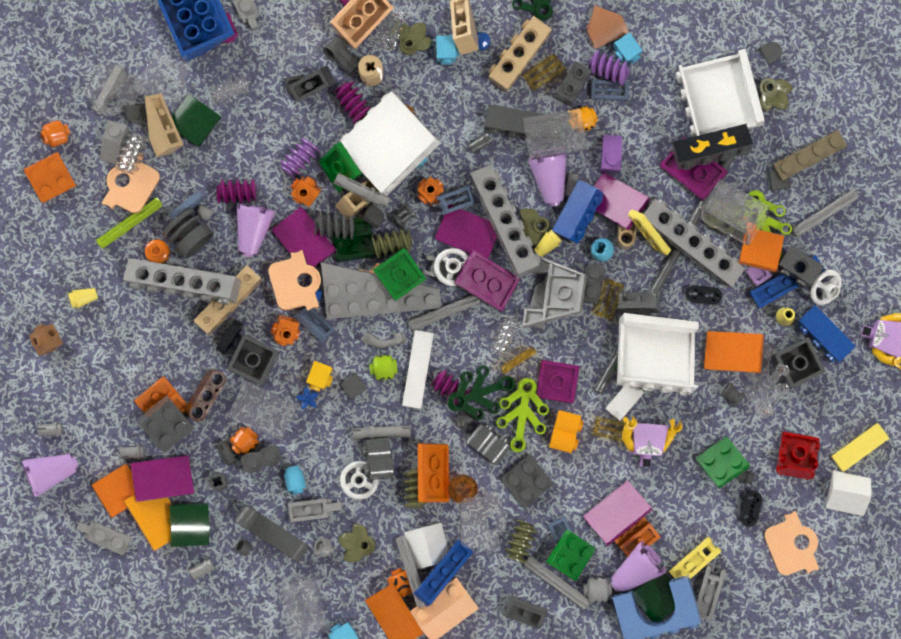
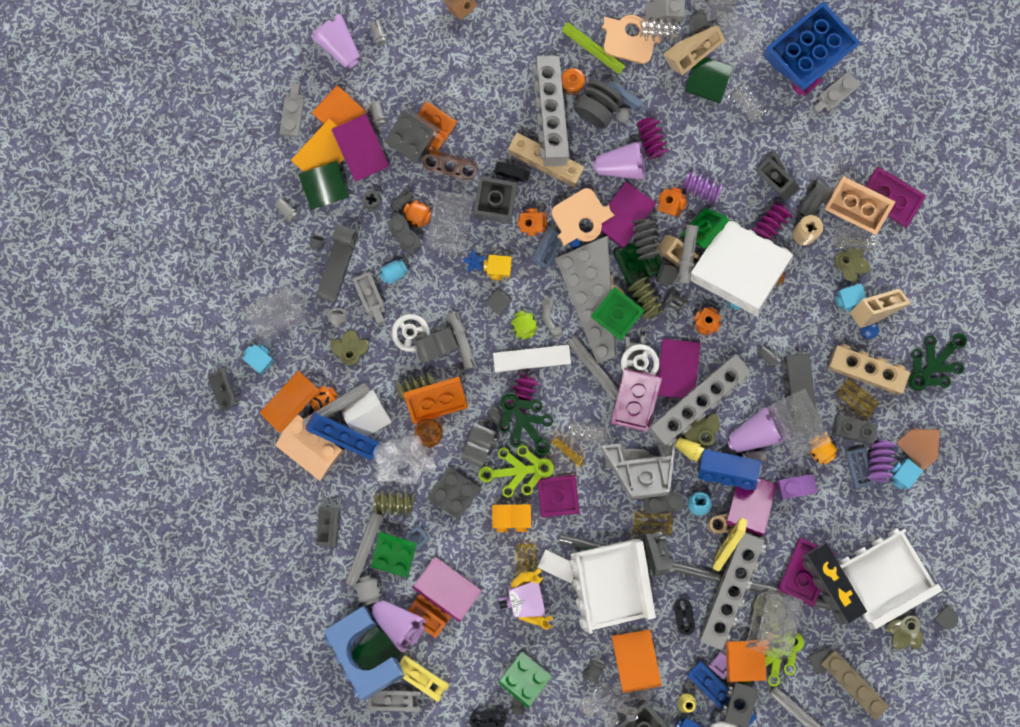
camera: 80 degrees right, 0 degrees up
(82, 297) = (509, 25): light yellow cone -> none
(444, 203) = (698, 337): sand blue tile -> none

